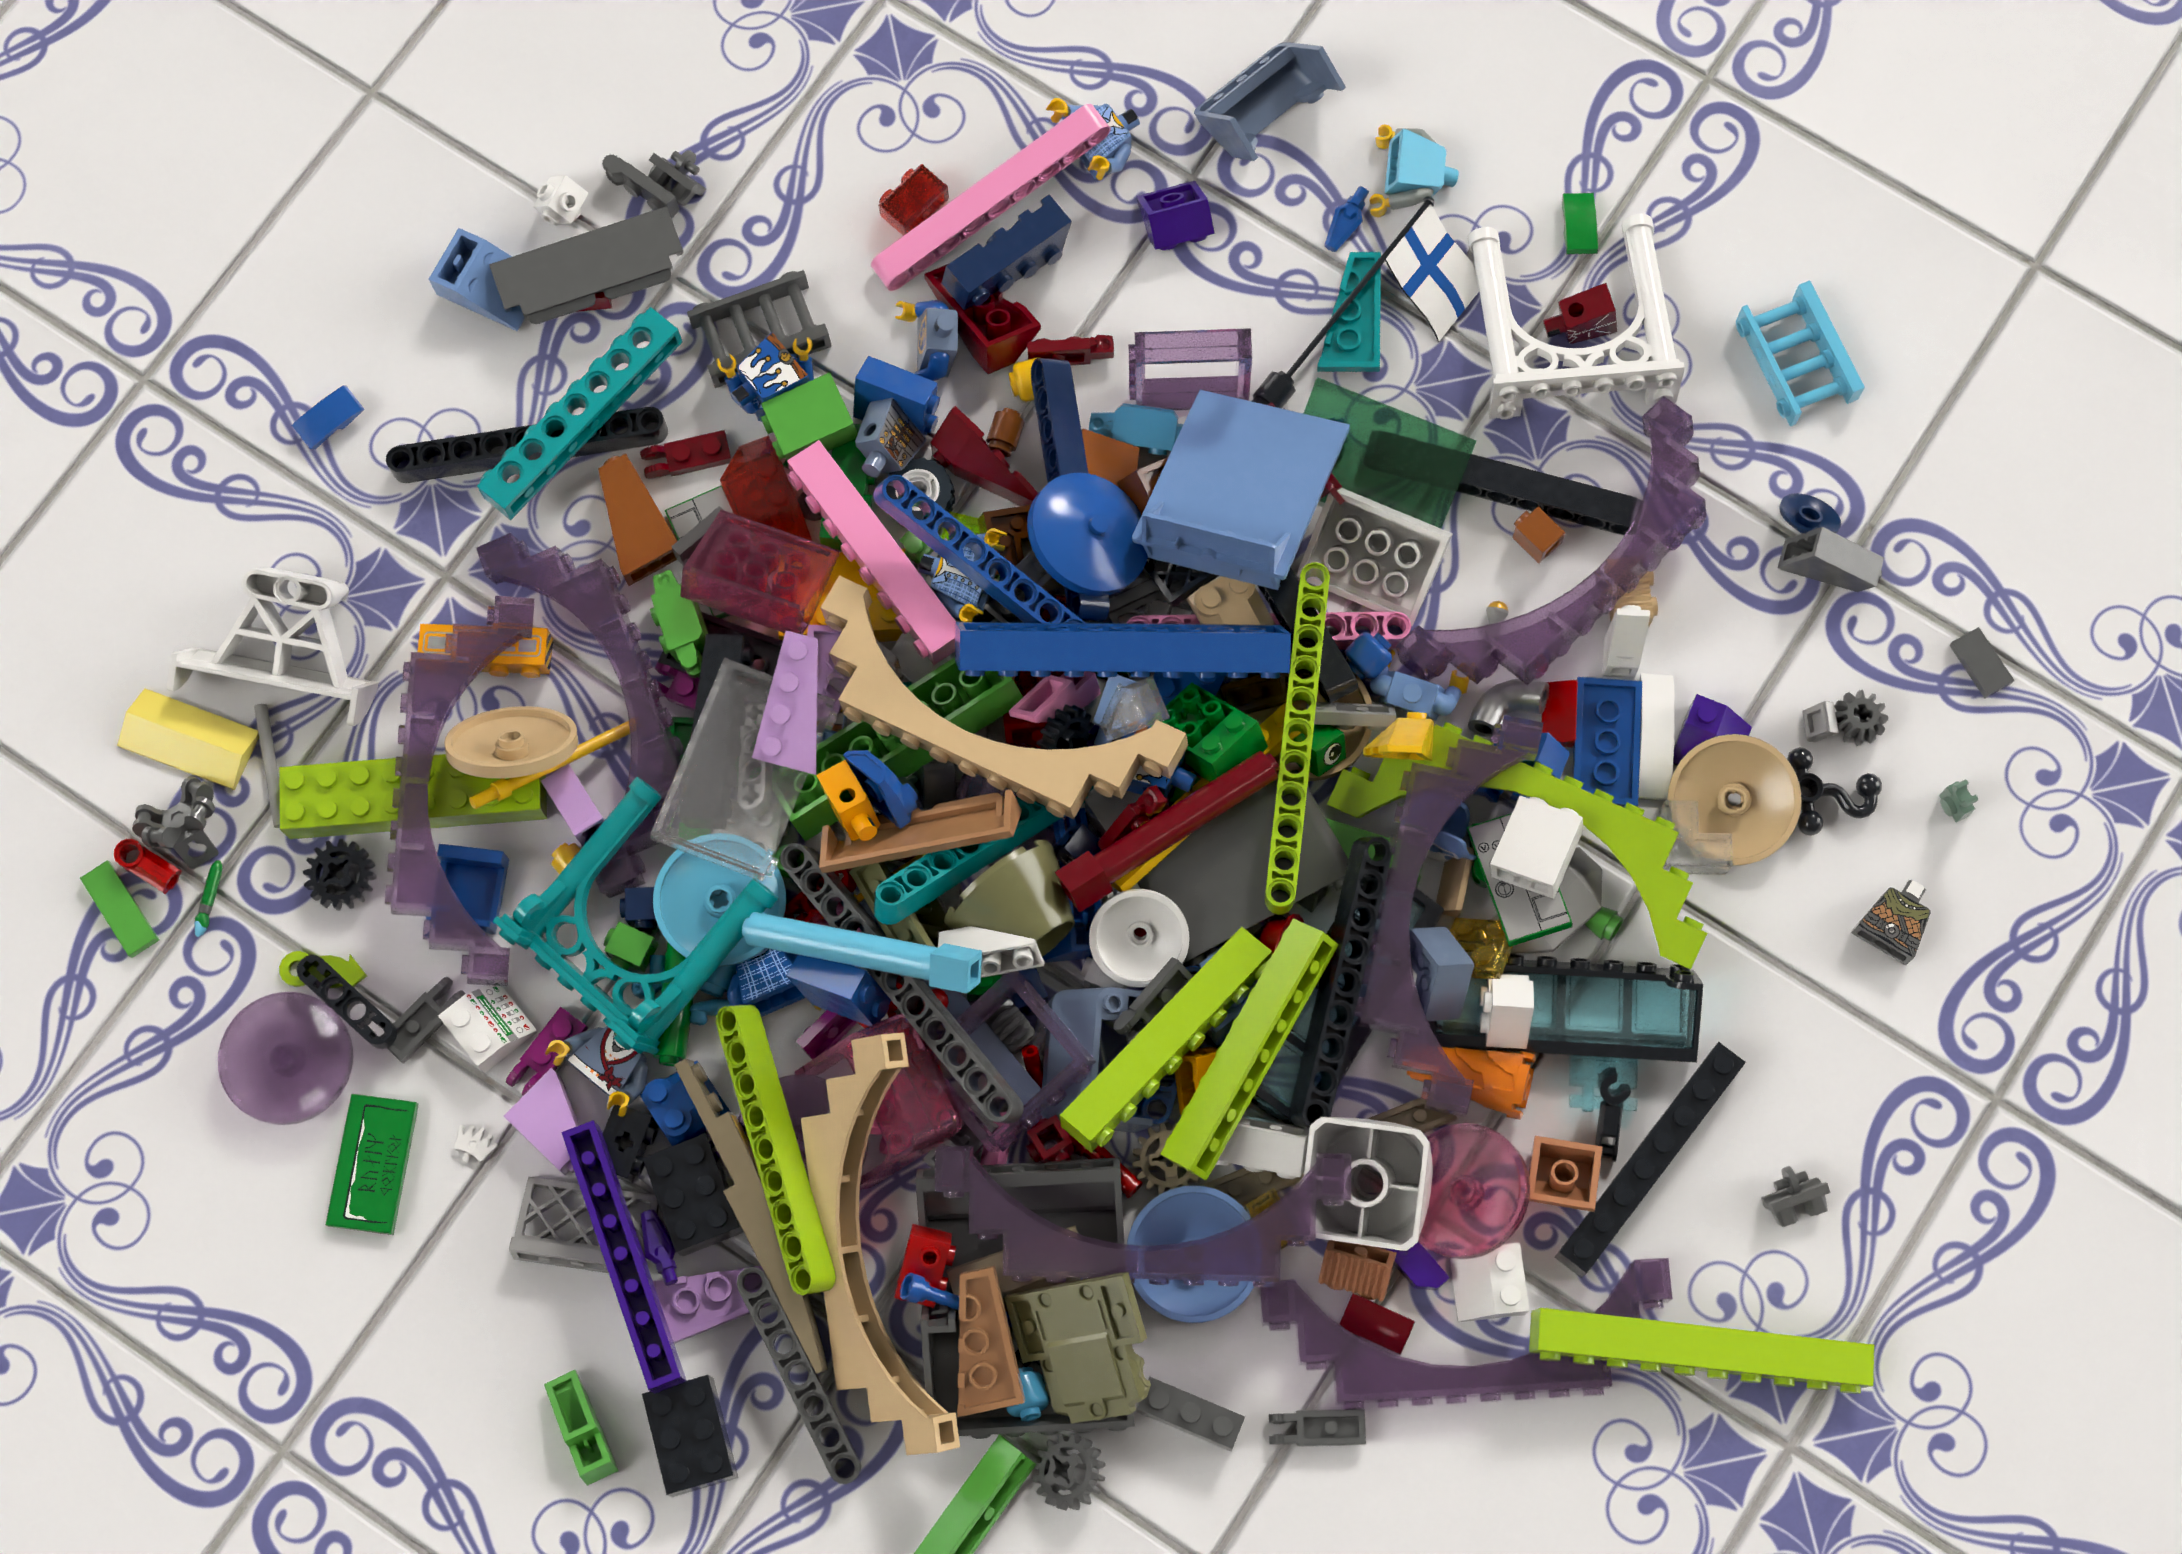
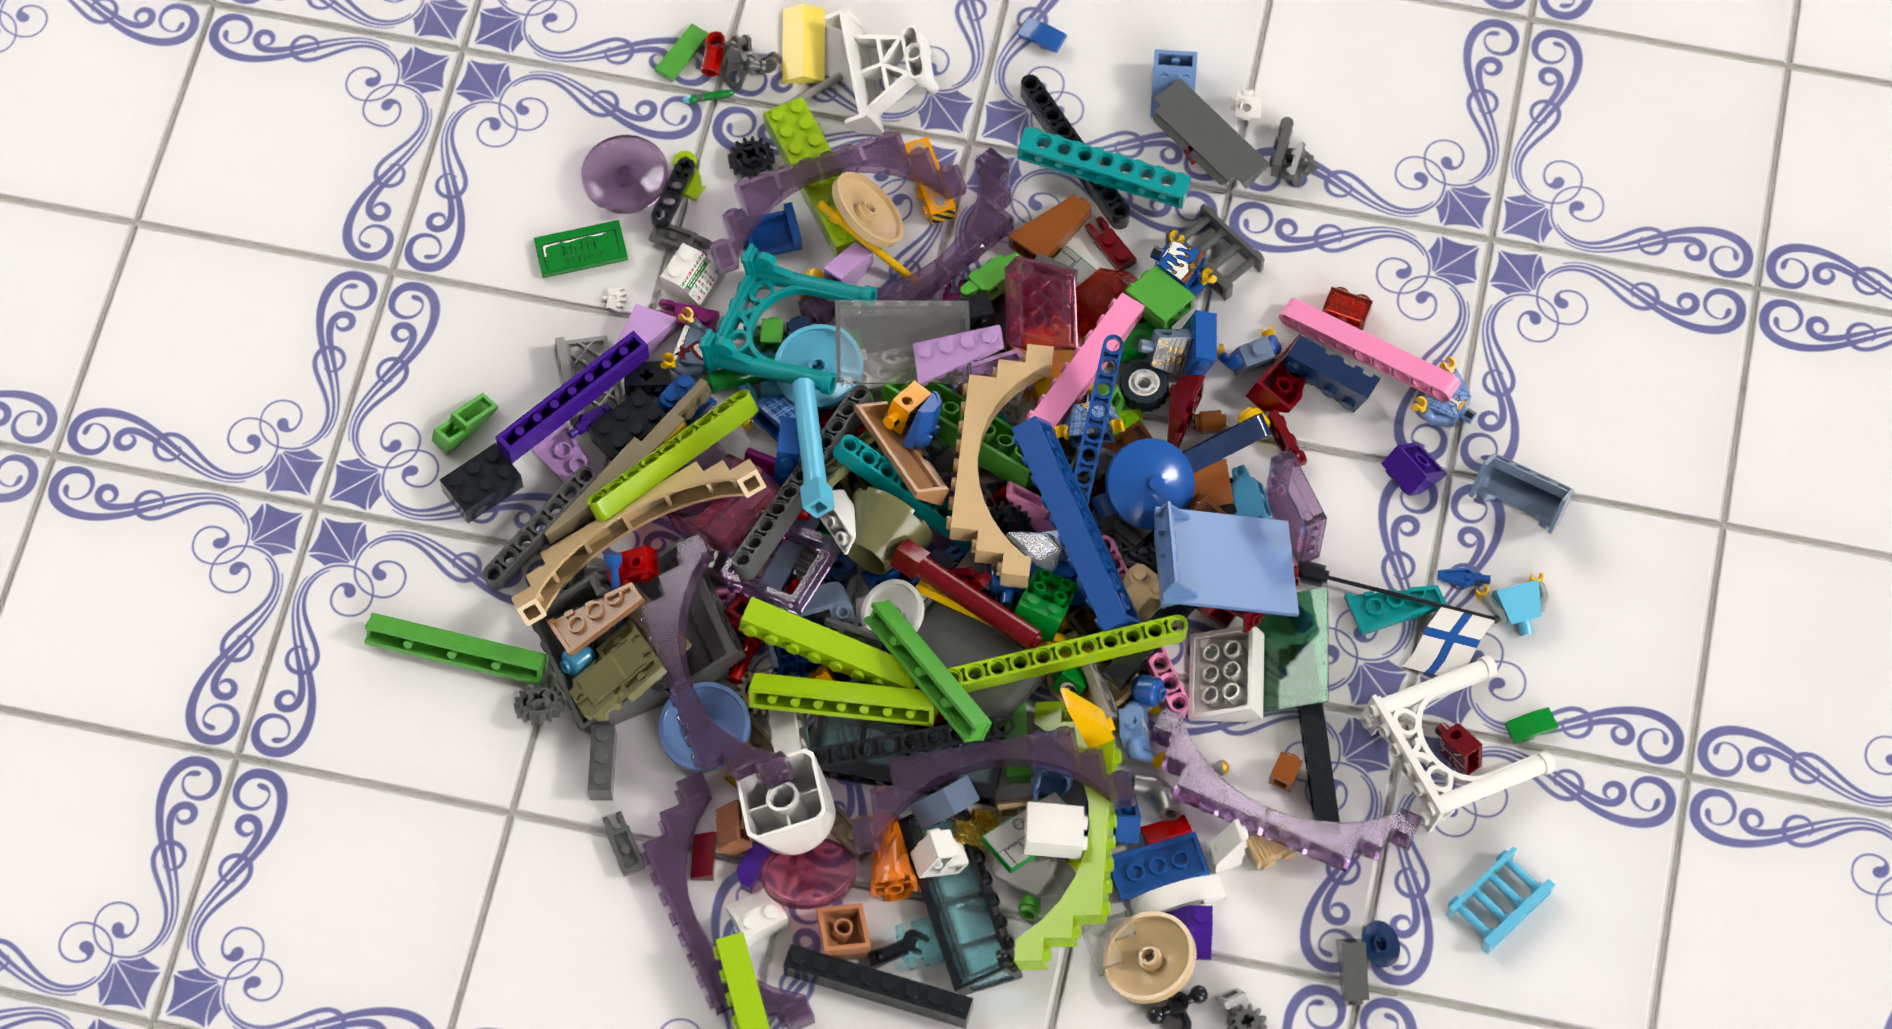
camera: 65 degrees right, 10 degrees down
(1263, 920) = (928, 671): none -> bright green tile

